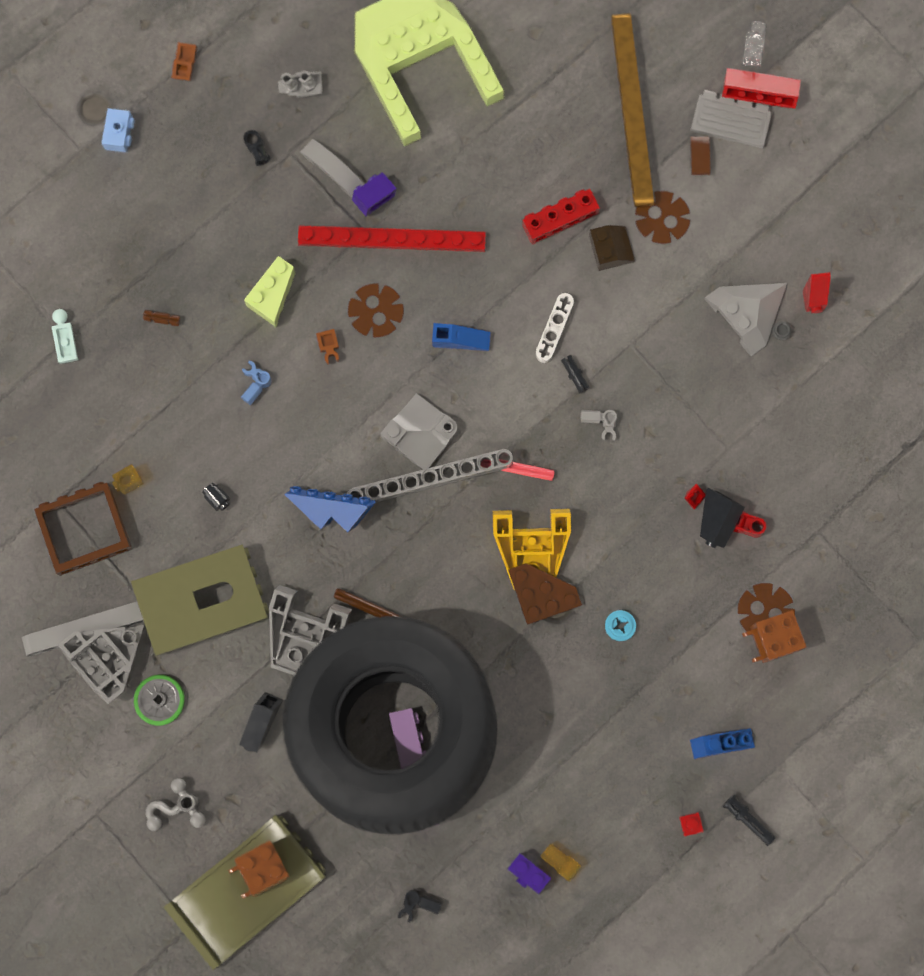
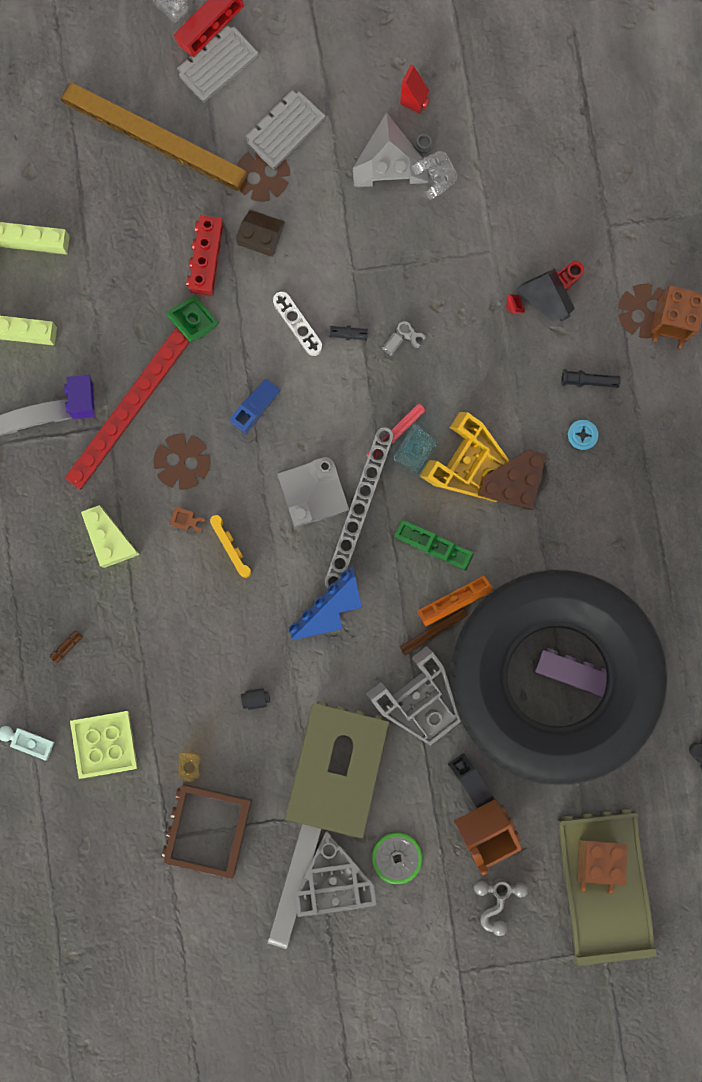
camera: 60 degrees left, 5 degrees up
(100, 400) = (103, 744): none -> yellowish green plate
(224, 759) = (489, 835): none -> dark orange container
(262, 381) = (177, 595): medium blue bar -> none
(333, 387) = (226, 539): none -> yellow plate
(403, 606) = (455, 600): none -> orange plate
(442, 561) = (434, 545): none -> green slope
(499, 240) = (192, 319): none -> green slope
(512, 492) = (415, 449): none -> clear light blue slope
(668, 593) = (581, 378): none -> black pin
(700, 155) = (232, 108): reddish brown slope -> none
(713, 211) = (285, 129): none -> light grey hinge
(761, 357) = (437, 172): none -> clear piece

